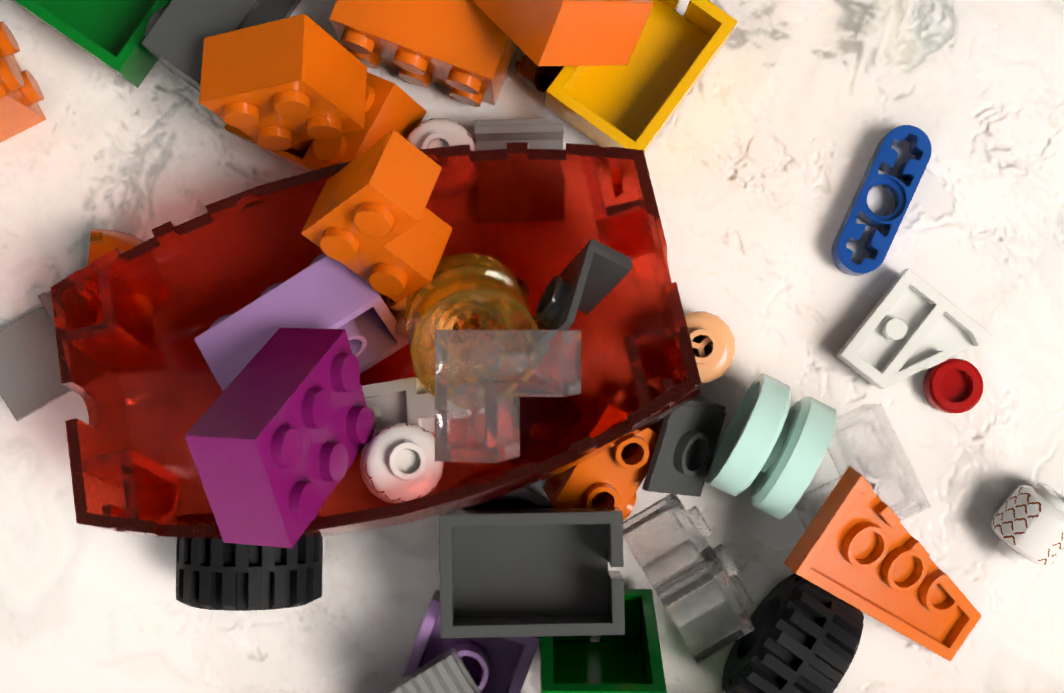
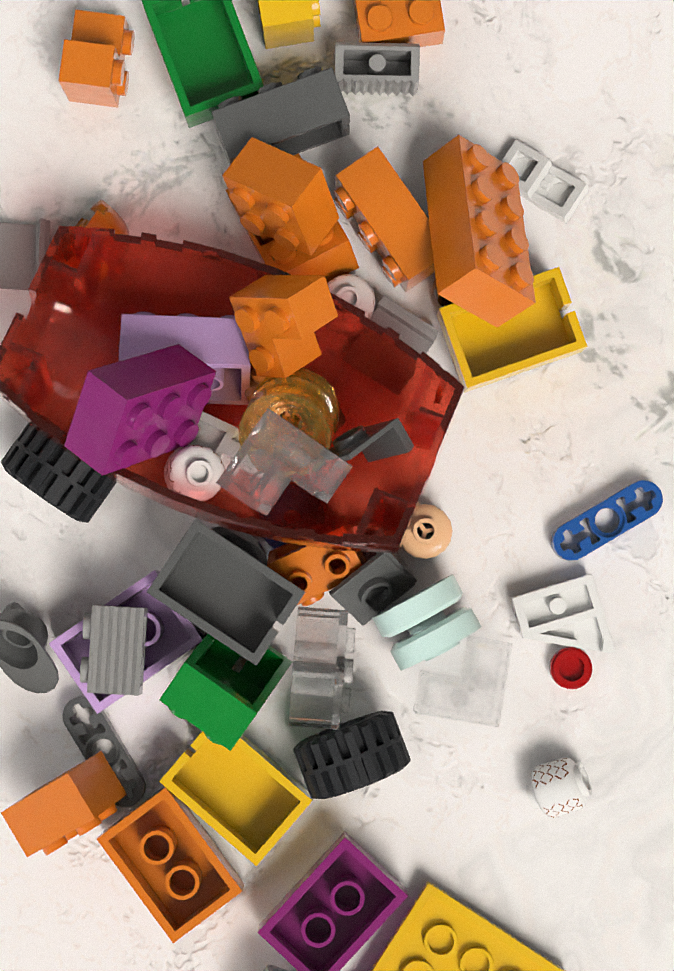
camera: 35 degrees right, 0 degrees up
(875, 565) = (440, 741): orange wing -> none

